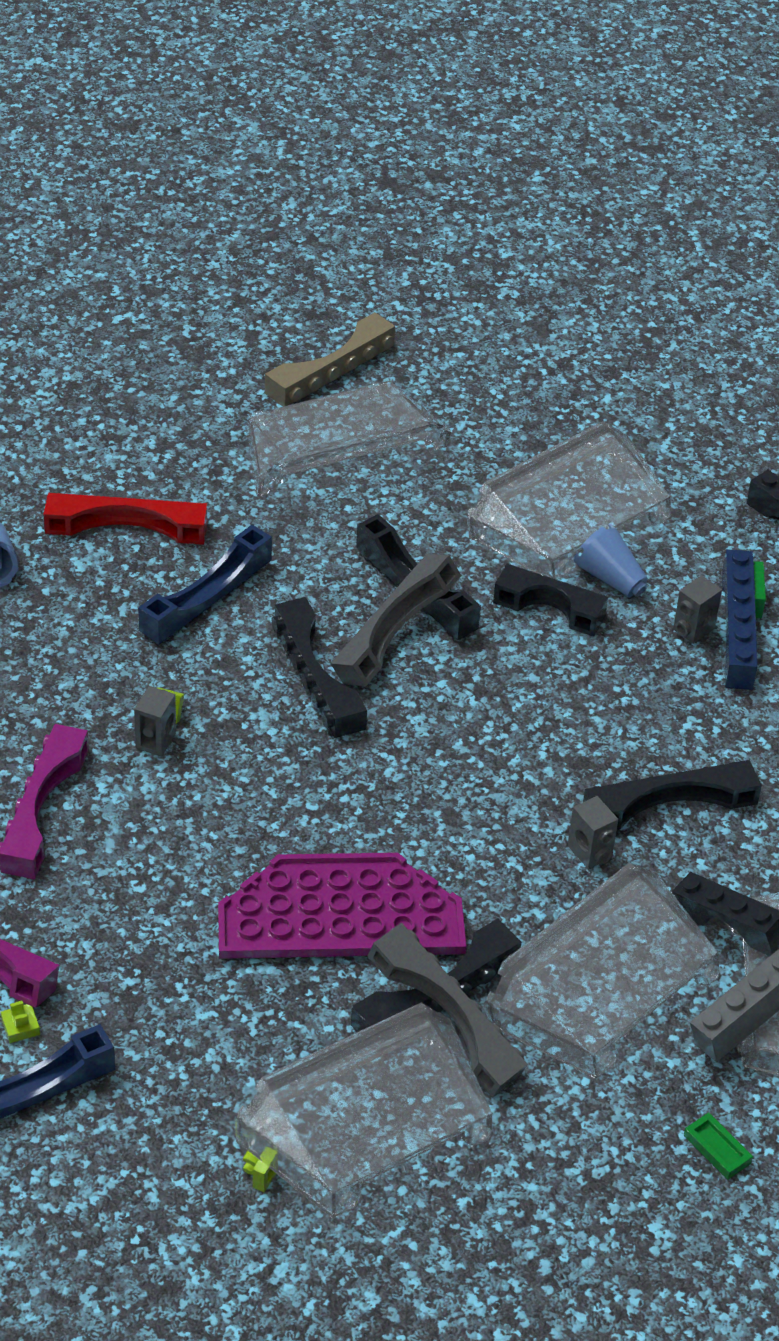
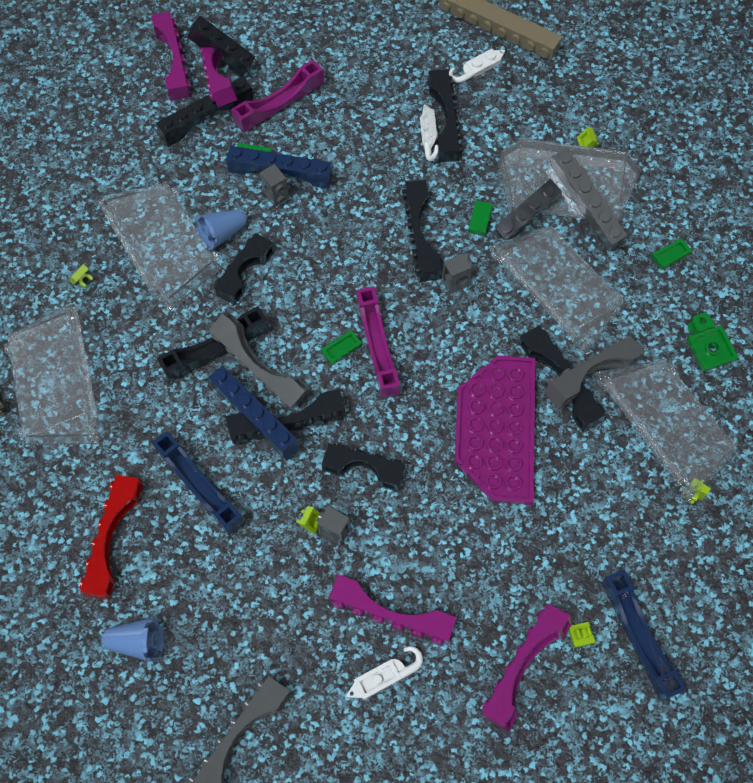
camera: 80 degrees left, 20 degrees up
(246, 779) = (340, 459): none -> black arch
(280, 646) = (273, 430): none -> dark blue arch
(401, 766) = (380, 355): none -> magenta arch
(444, 721) = (341, 347): none -> green tile
(499, 436) = (79, 275): none -> lime tile
(555, 1185) = (705, 334): none -> green plate
(724, 872) = (480, 218): none -> green tile

